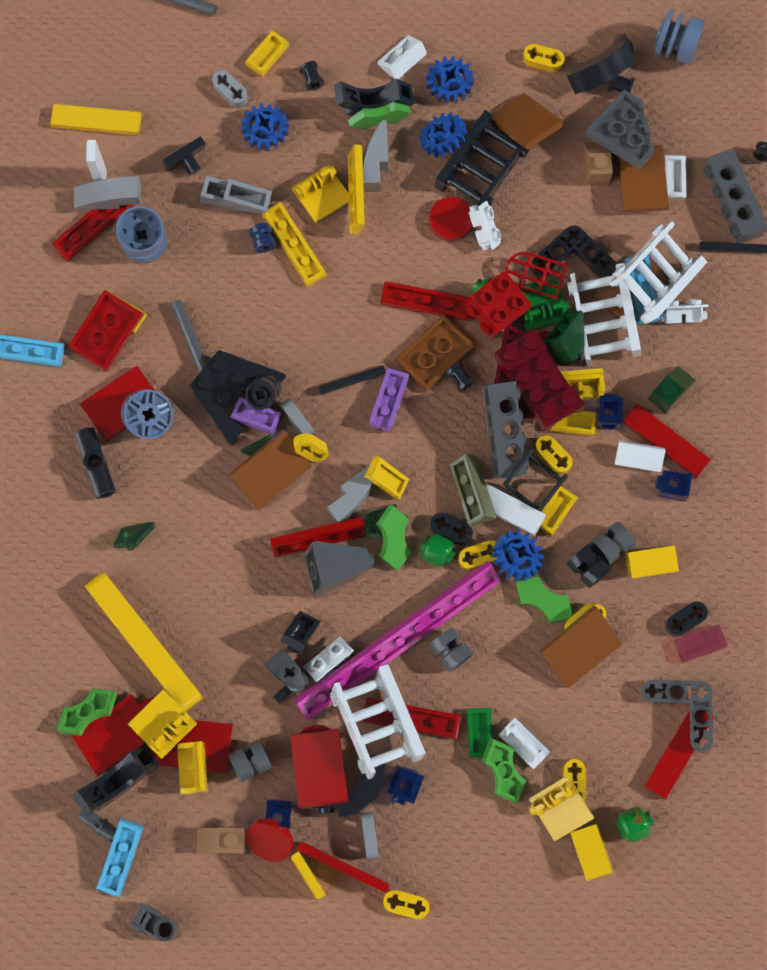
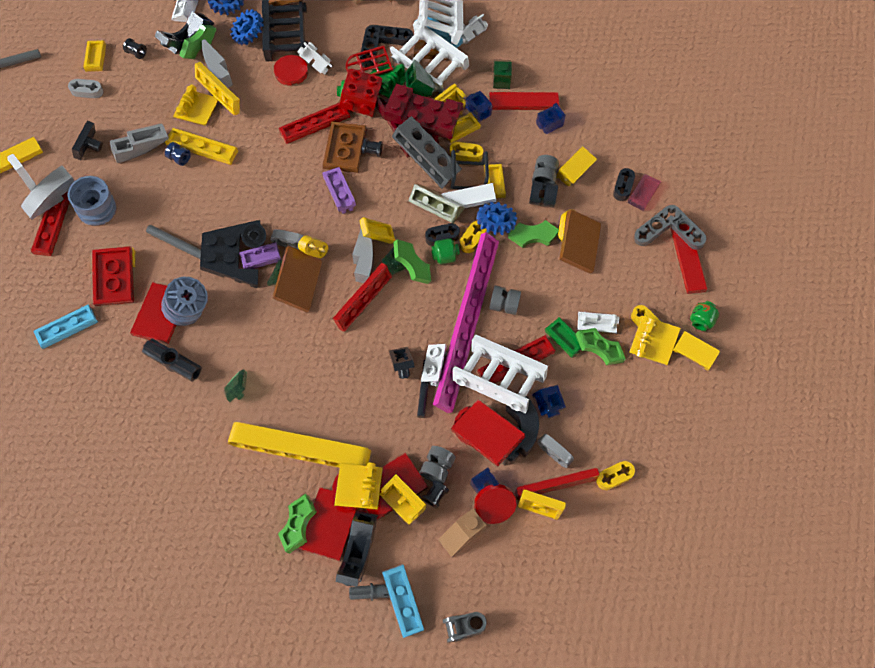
camera: 40 degrees left, 10 degrees down
(227, 785) = (435, 494): none -> black bush
(259, 134) = (127, 93): blue gear -> none
(287, 671) = (413, 391): dark grey piece -> none
(334, 565) = (386, 305): dark grey slope -> none
(353, 379) = (305, 195): black bar -> none
(639, 456) = (516, 117): white tile -> none

